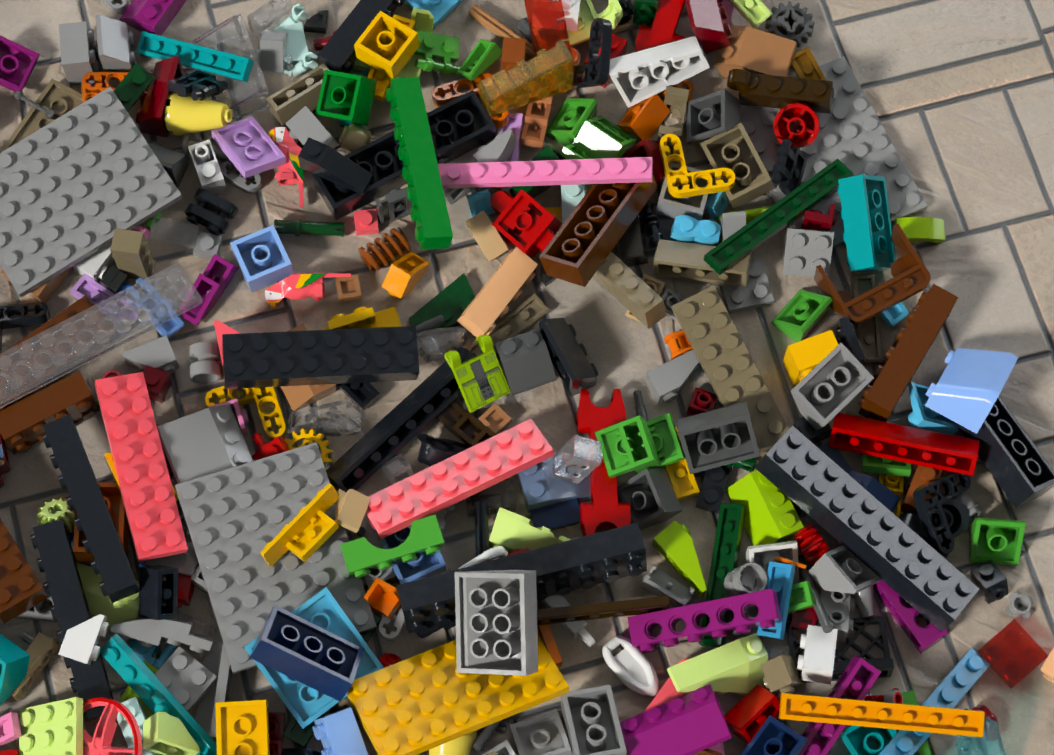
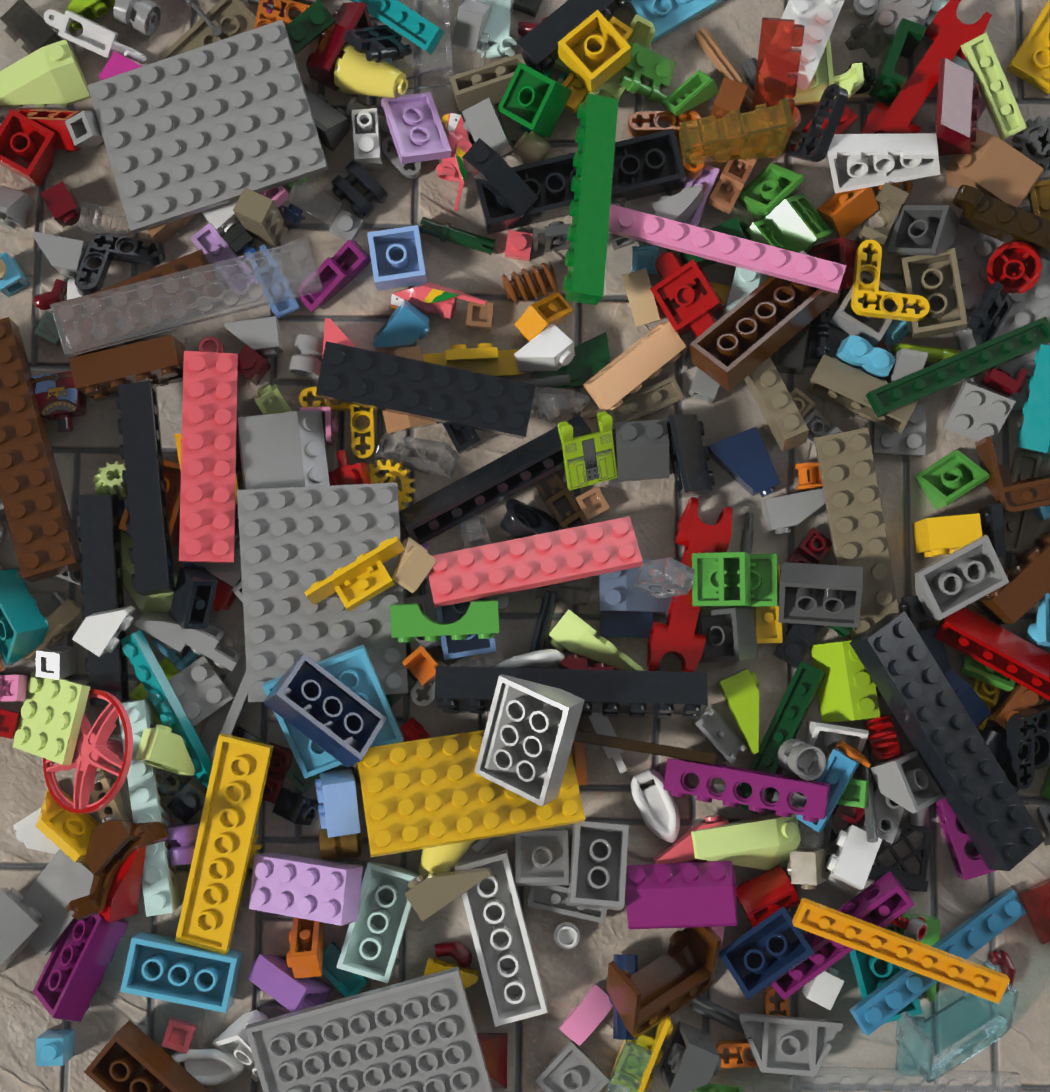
camera: 20 degrees right, 15 degrees up
(43, 690) = (56, 661): none -> light grey brick
(158, 247) = (293, 214): none -> dark blue plate
(179, 407) = (271, 400): none -> yellowish green bracket
(283, 314) = (402, 327): none -> dark azure slope
(416, 301) = (546, 351): none -> white slope
(564, 294) = (703, 387): none -> light grey brick
(620, 347) = (747, 462): none -> dark blue slope

